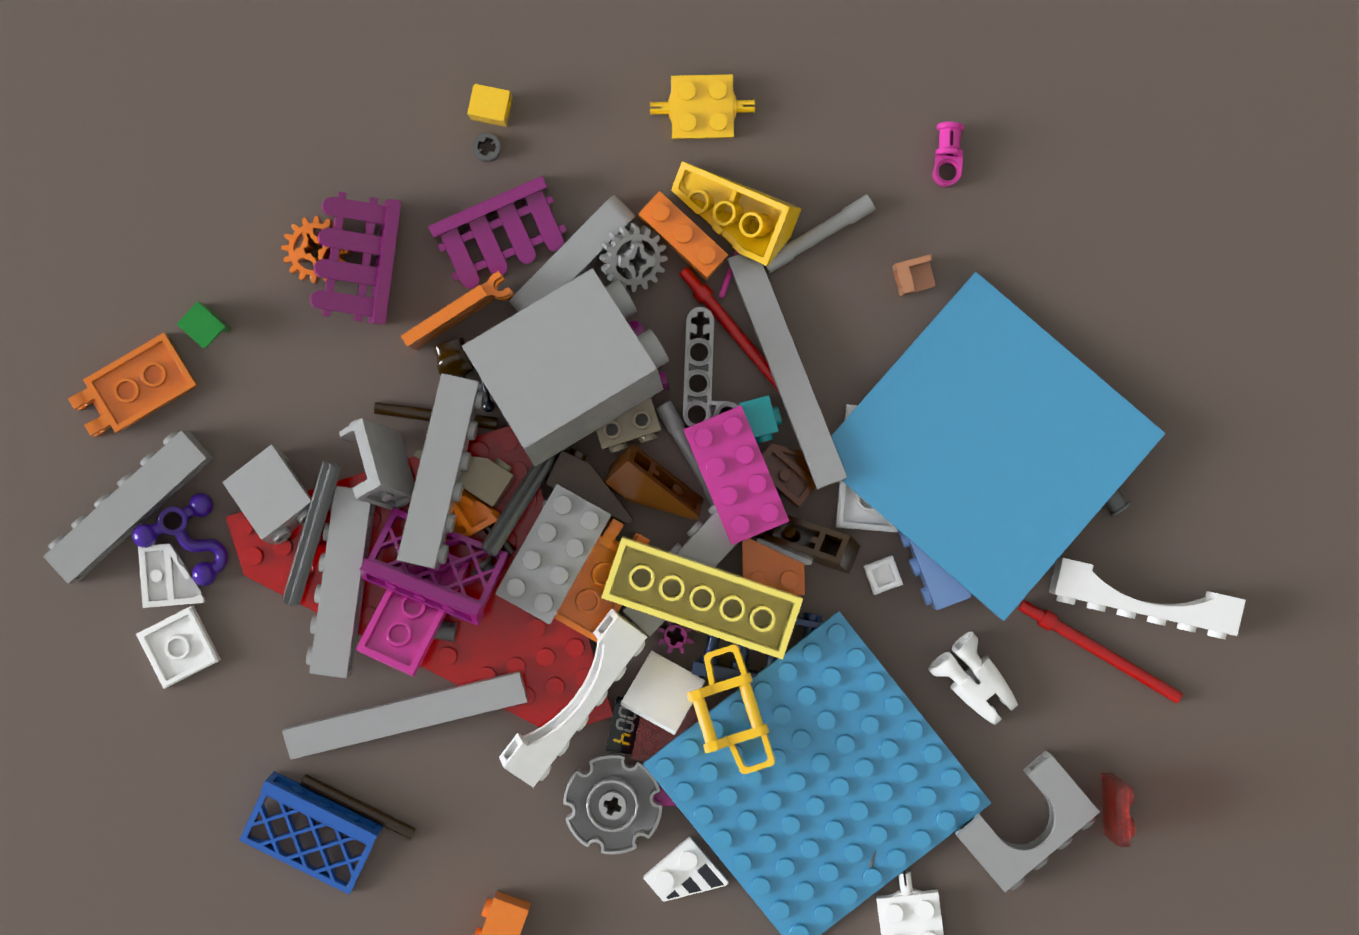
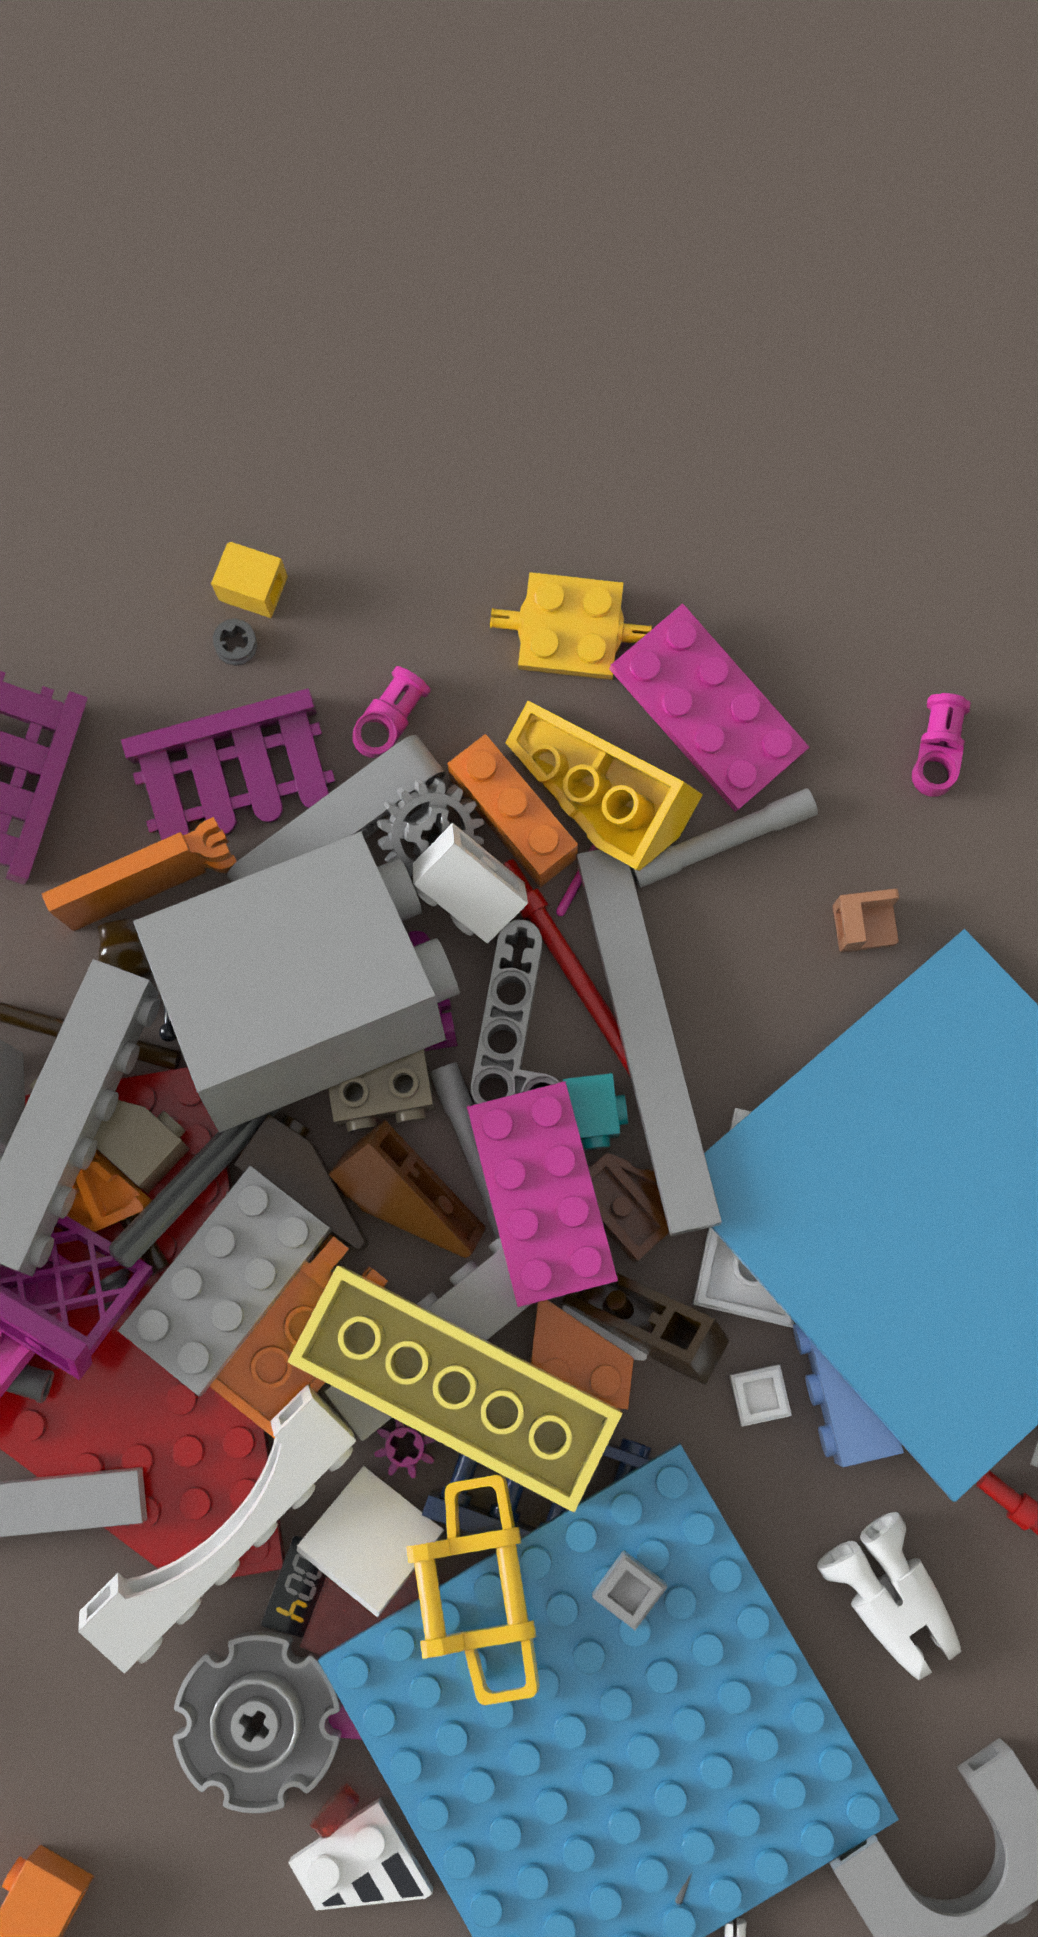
camera: 10 degrees right, 10 degrees down
(592, 182) = (388, 714): none -> dark pink connector
(663, 289) = (468, 884): none -> white brick
(666, 846) = (335, 1811): none -> clear red tile
(798, 150) = (708, 707): none -> dark pink plate
(820, 698) = (629, 1590): none -> light grey tile

